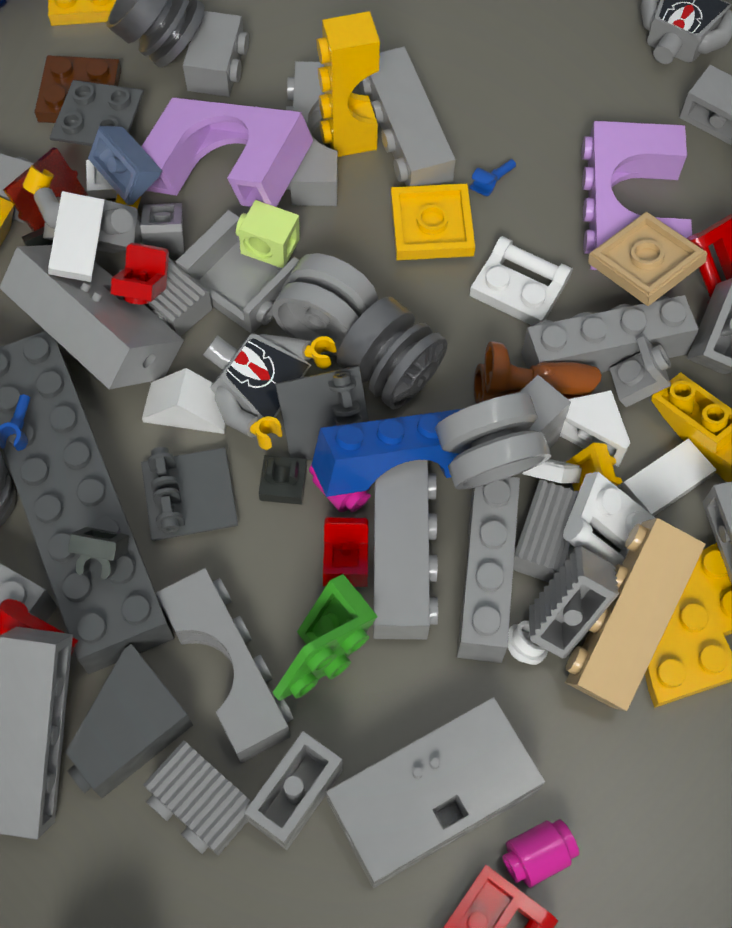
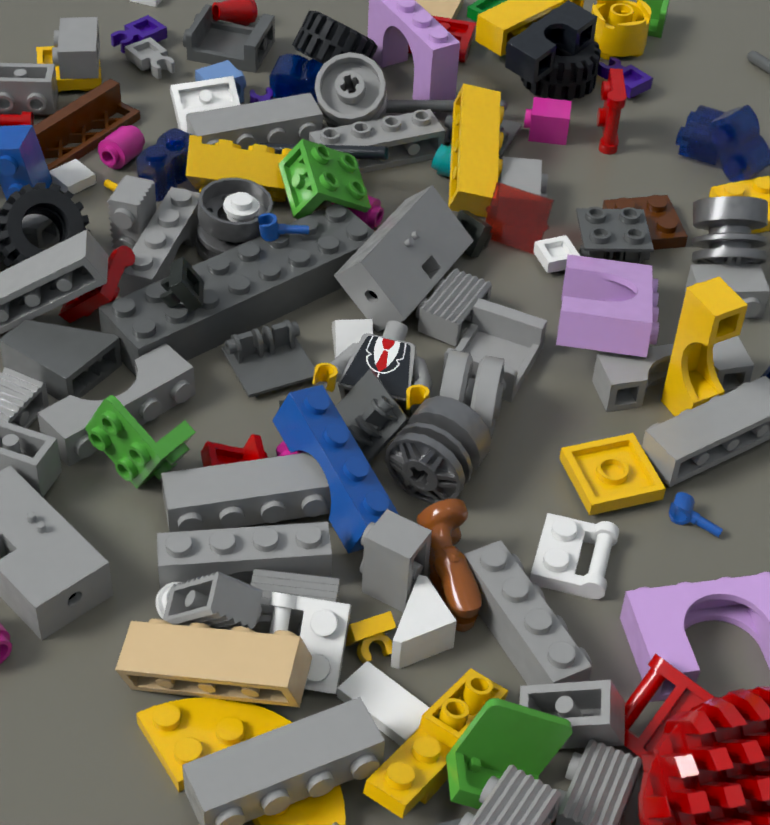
camera: 75 degrees right, 20 degrees down
(76, 236) = (451, 209): white tile -> none
(119, 221) = (492, 241): light grey torso -> none
(123, 163) = (566, 247): sand blue slope -> none
(143, 274) = (441, 272): red bracket -> none
(163, 227) = (517, 288): light grey slope -> none
(268, 233) = (535, 352): yellowish green brick -> none
(492, 440) = (335, 488): light grey wheel -> none
(556, 471) = (358, 592): white tile -> none
(642, 373) = (494, 650): light grey bracket -> none
(647, 258) = (620, 623): tan tile -> none

